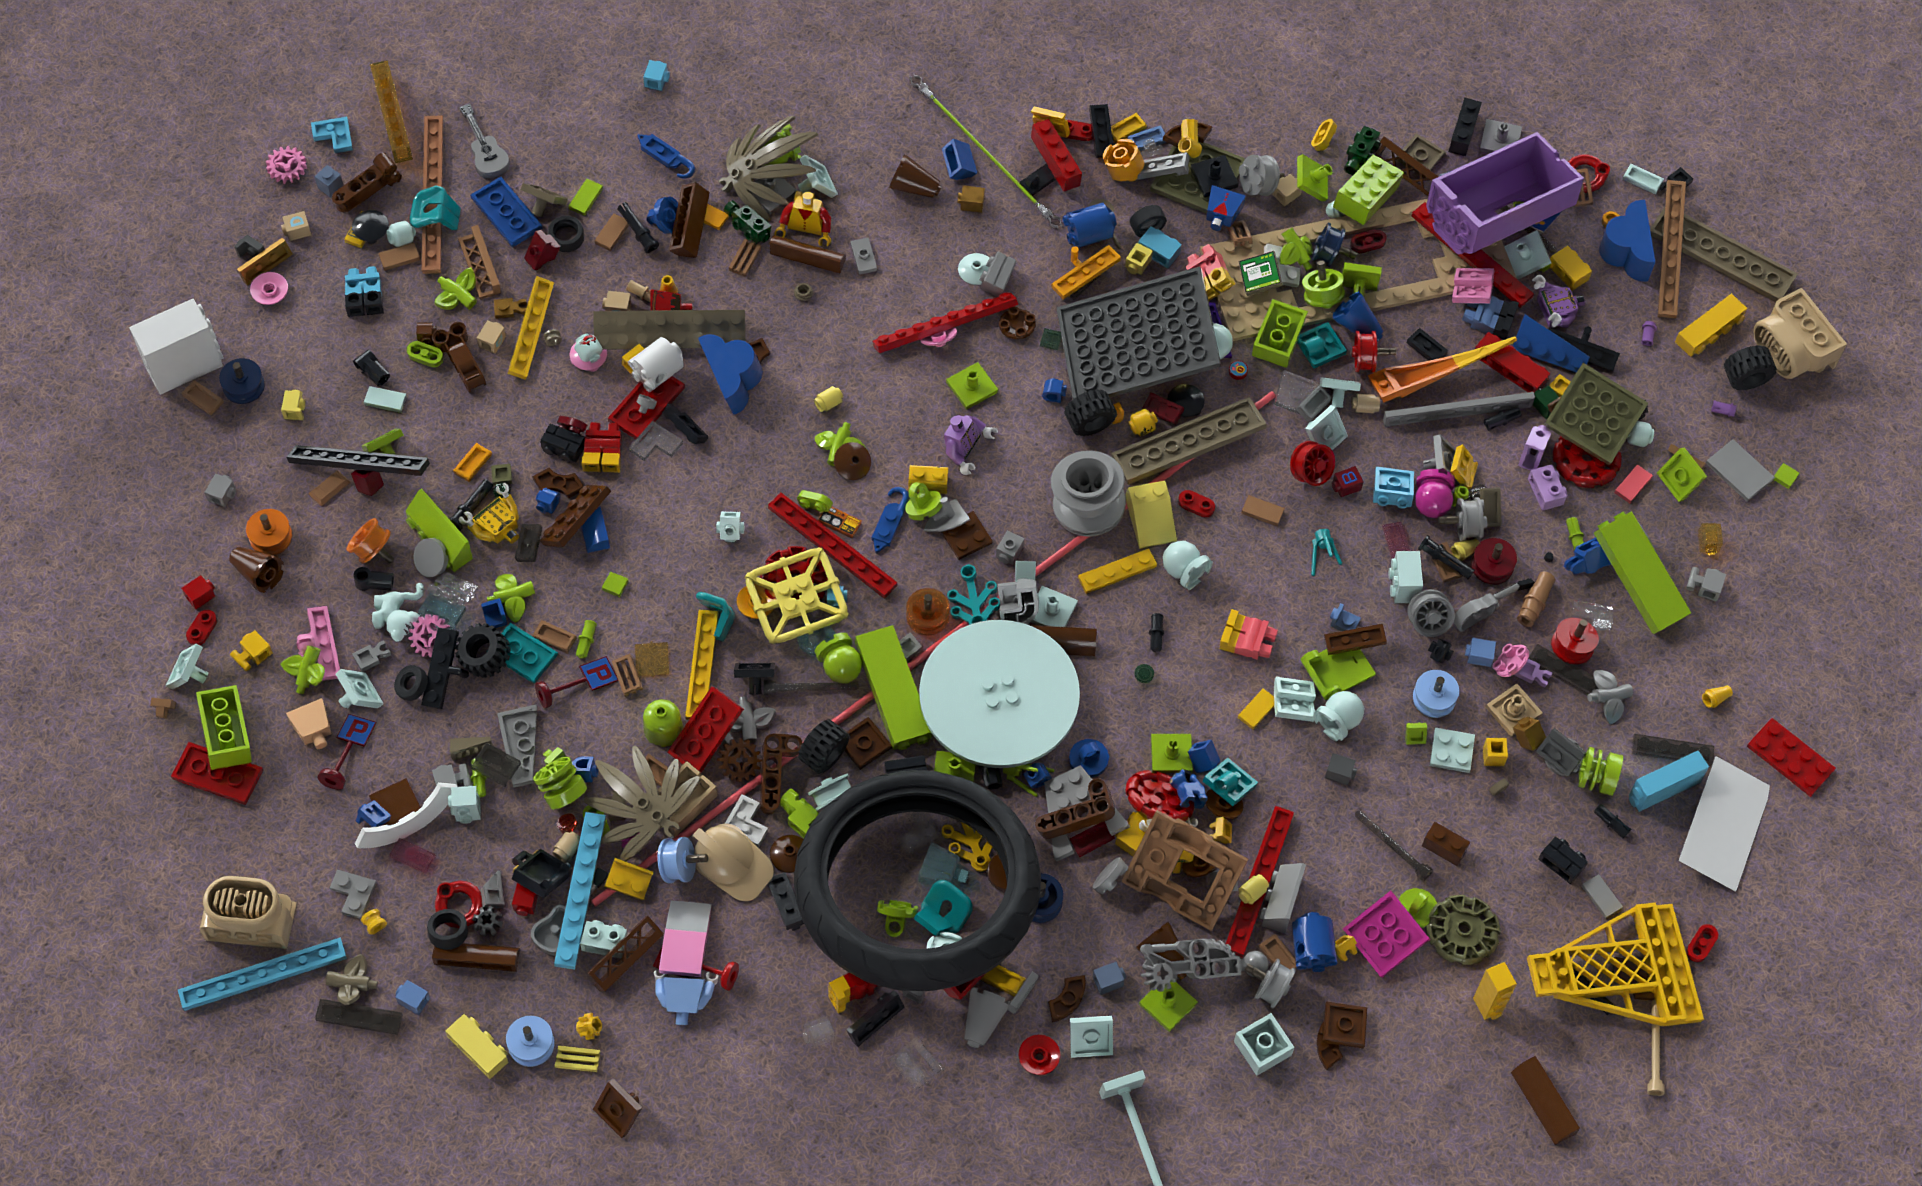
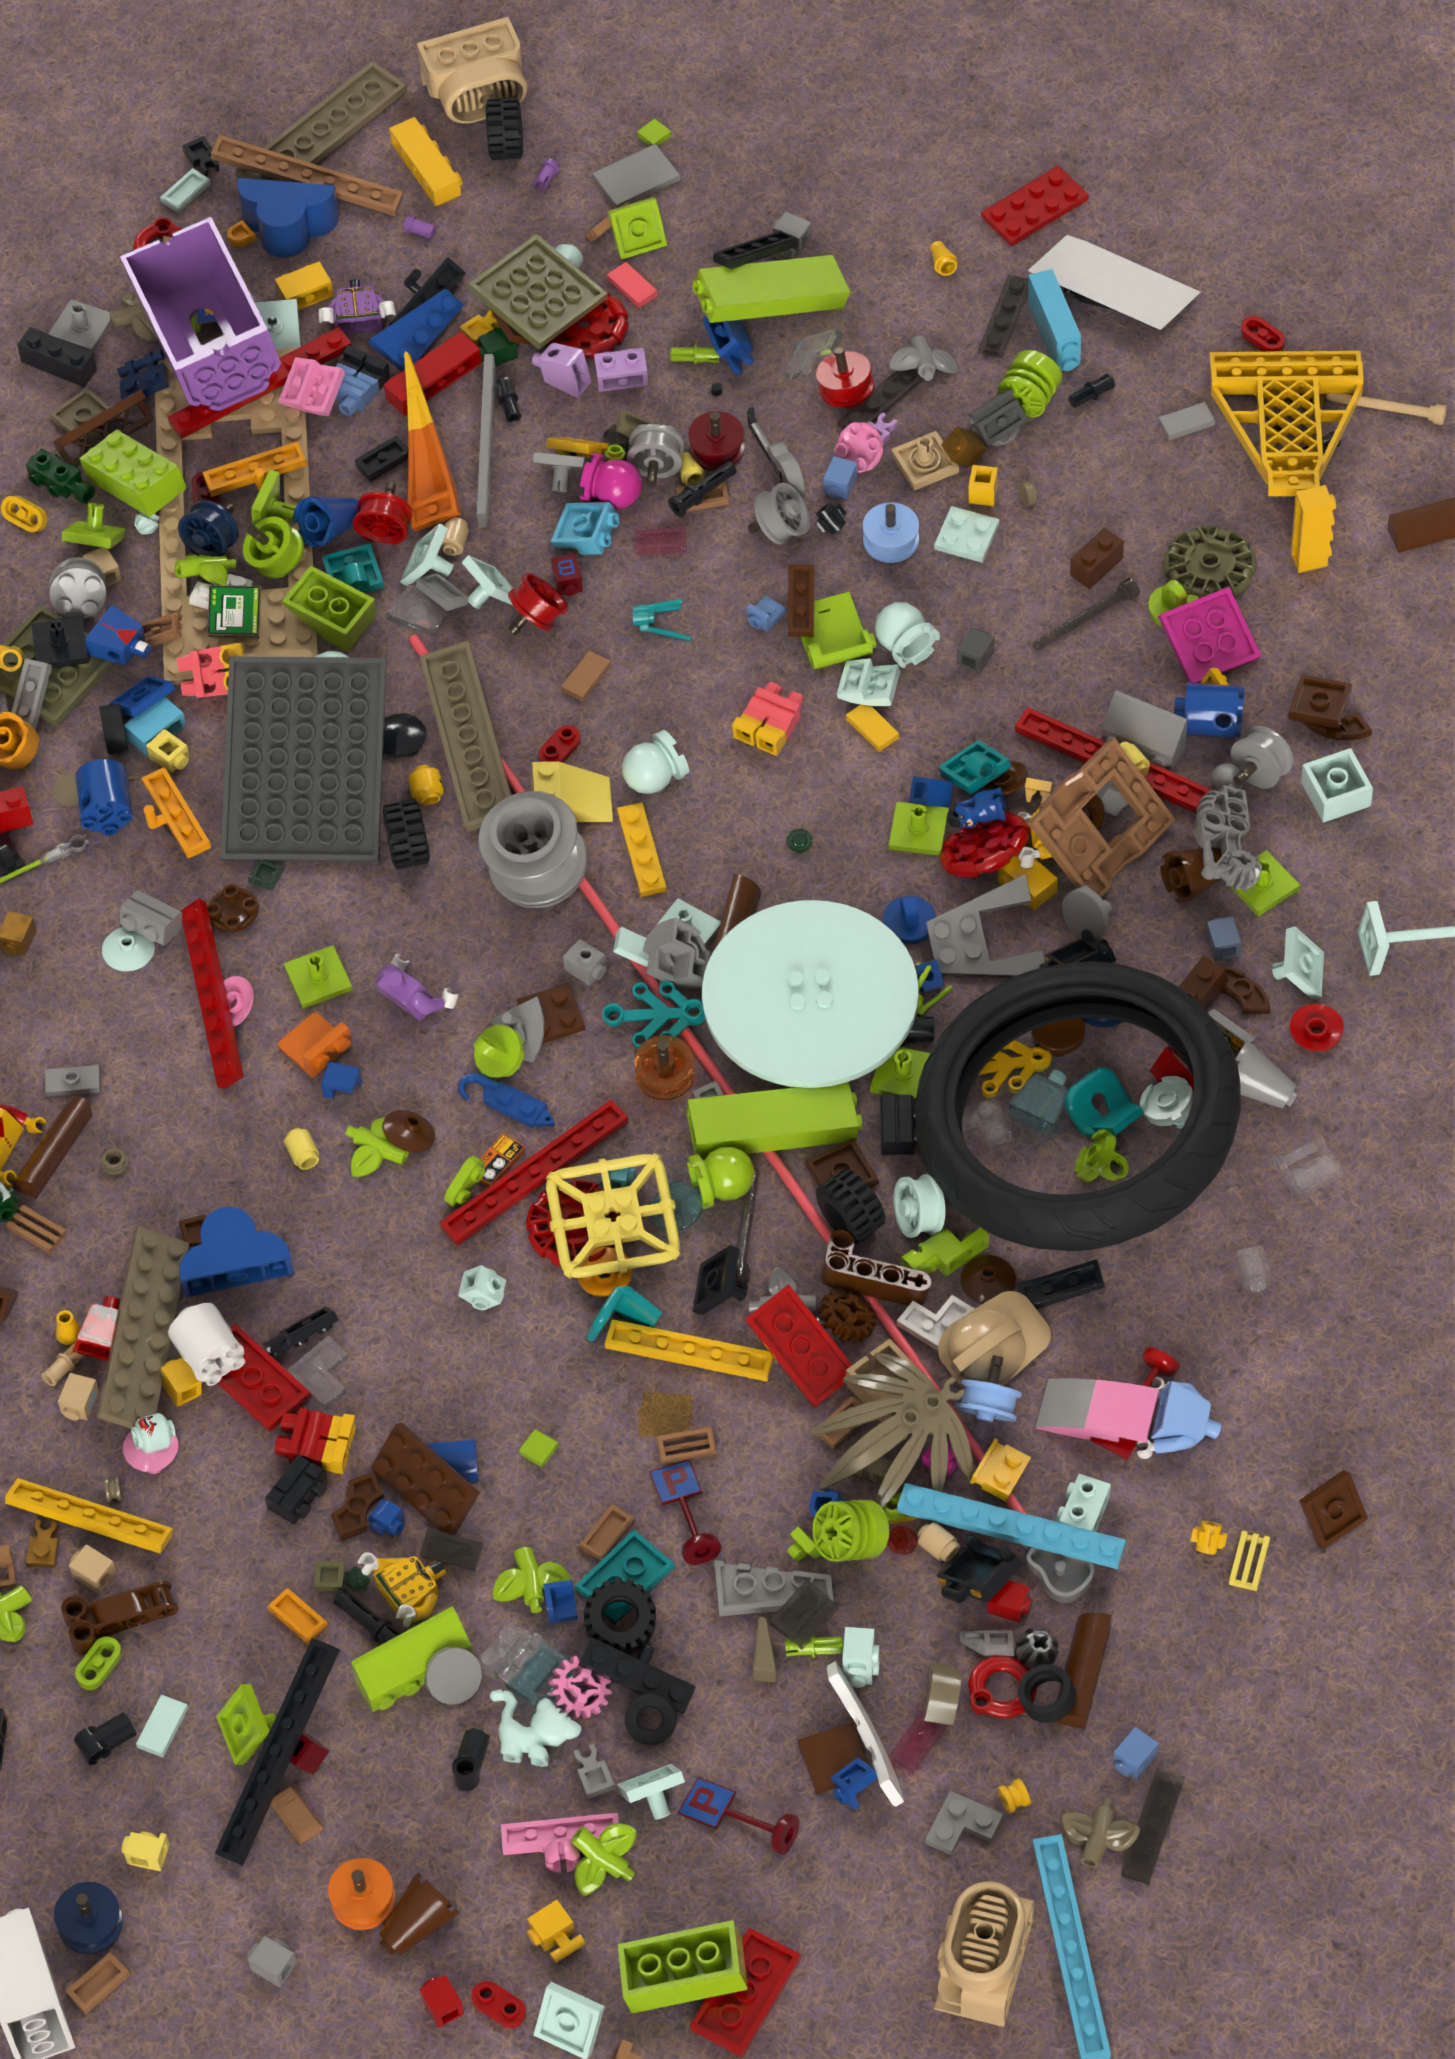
camera: 75 degrees left, 5 degrees down
(311, 723) = (690, 1856): light nougat torso -> none
(369, 542) = (411, 1751): orange wheel -> none
(424, 332) = (62, 1658): reddish brown plate -> none
(445, 774) = (811, 1683): light grey brick -> none
(447, 861) = (942, 1693): none -> dark tan brick
(477, 1045) = (1218, 1677): light yellow brick -> none
(530, 1041) = (1221, 1609): light blue wheel -> none
(571, 424) = (266, 1480): dark red plate -> none
(586, 639) = (620, 1491): lime axle -> none
(629, 957) = (1116, 1479): reddish brown fence -> none
(645, 402) = (262, 1369): light grey tile -> none
(662, 722) = (774, 1402): lime cylinder -> none
(847, 989) = (1203, 1228): hips -> none
(885, 411) = (340, 1078): none -> blue panel
(887, 1007) = (1226, 1186): black hinge -> none
(914, 392) = (315, 1043): none -> orange bracket
(932, 477) = (458, 1042): yellow brick -> none
(1054, 390) = (351, 878): blue plate -> none
(1056, 964) = (1205, 981): none -> reddish brown brick
(1065, 873) = (1082, 950): none -> black piece
(1075, 812) = (999, 934): reddish brown beam -> none
(1091, 839) = (1026, 929): dark red plate -> none
(1156, 632) = (742, 818): black axle -> none
(1163, 408) = (412, 754): dark red plate -> none
(1180, 233) = (143, 695): none -> blue tile
(1274, 948) = (1207, 759): medium nougat tile -> none
(1391, 264) = (254, 469): none -> light orange plate
(1406, 576) = (724, 531): light aqua brick -> none
(1416, 733) = (939, 564): lime tile -> none
(1535, 601) = (778, 409): medium nougat piece -> none
(1563, 859) = (1135, 447): black brick -> none
(1672, 553) = (755, 249): none -> black tile
(1710, 538) = (728, 221): clear yellow brick -> none

